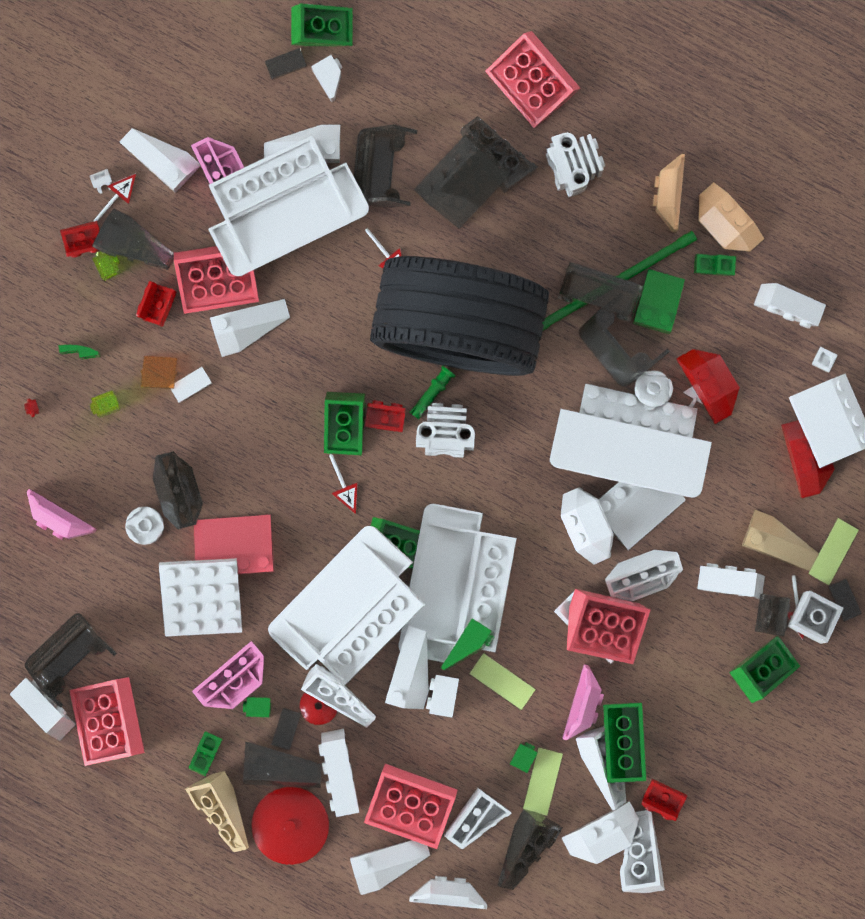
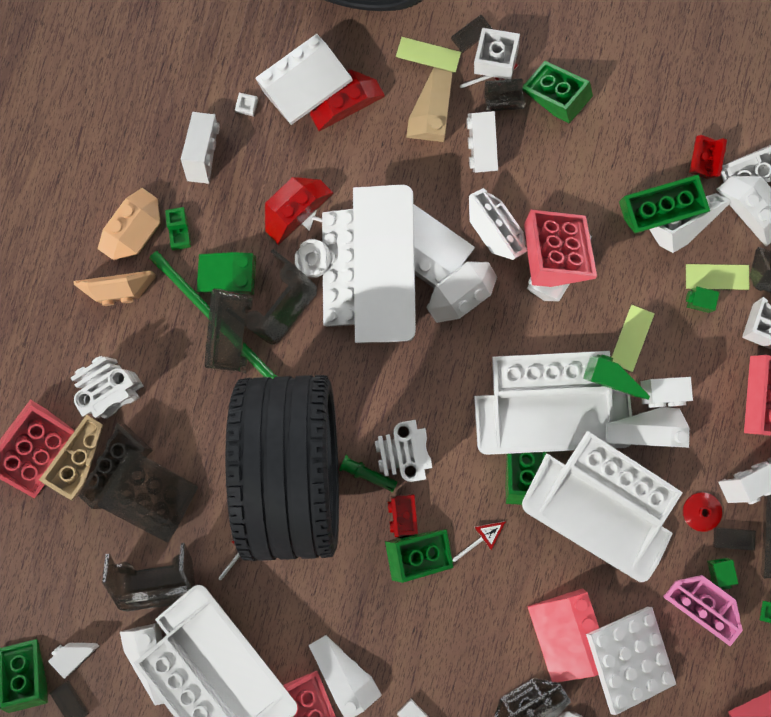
camera: 95 degrees left, 0 degrees up
(329, 690) = (687, 510): white wedge -> none
(507, 115) = (72, 464): none -> tan wedge
(584, 705) = (637, 253): bright pink wedge -> none

